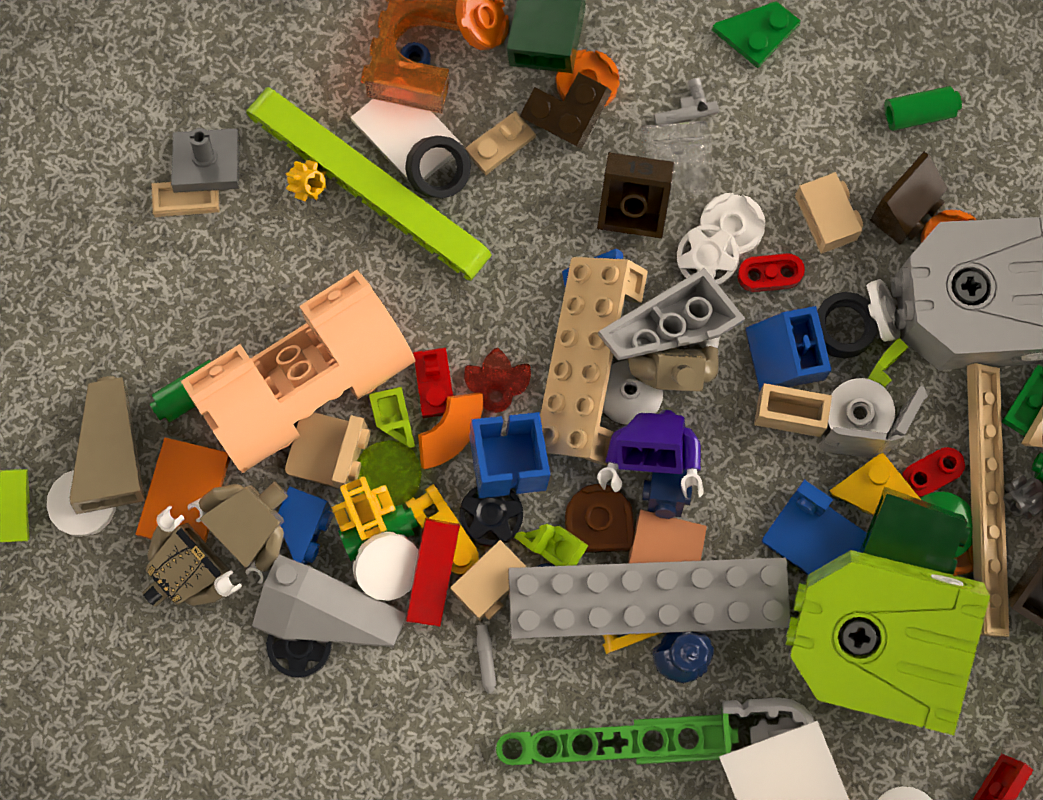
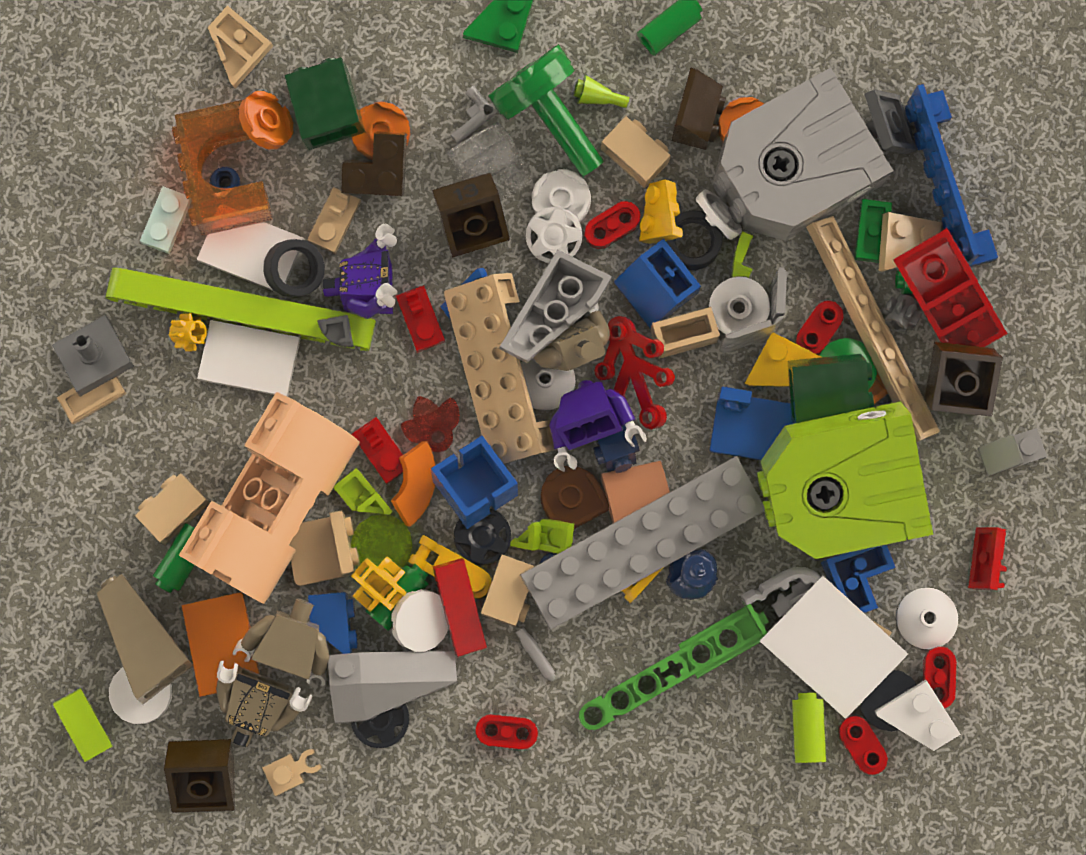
camera: 30 degrees left, 5 degrees up
(95, 612) = (200, 775): none -> dark brown slope
(180, 652) = (286, 773): none -> tan plate
(201, 338) = (171, 508): none -> tan brick
(339, 68) = (165, 220): none -> light aqua plate
(351, 233) = (248, 358): none -> white tile
(417, 722) = (507, 729): none -> red plate
(449, 244) = (337, 330): none -> dark grey tile
(503, 210) = (367, 278): none -> dark purple torso
(536, 274) = (420, 318): none -> red plate
(723, 420) = (633, 367): none -> red plant
(760, 100) = (534, 87): none -> green piece
(813, 137) = (593, 92): none -> lime cone
(823, 281) = (659, 213): none -> yellow wing
(852, 731) = (852, 569): none -> blue brick

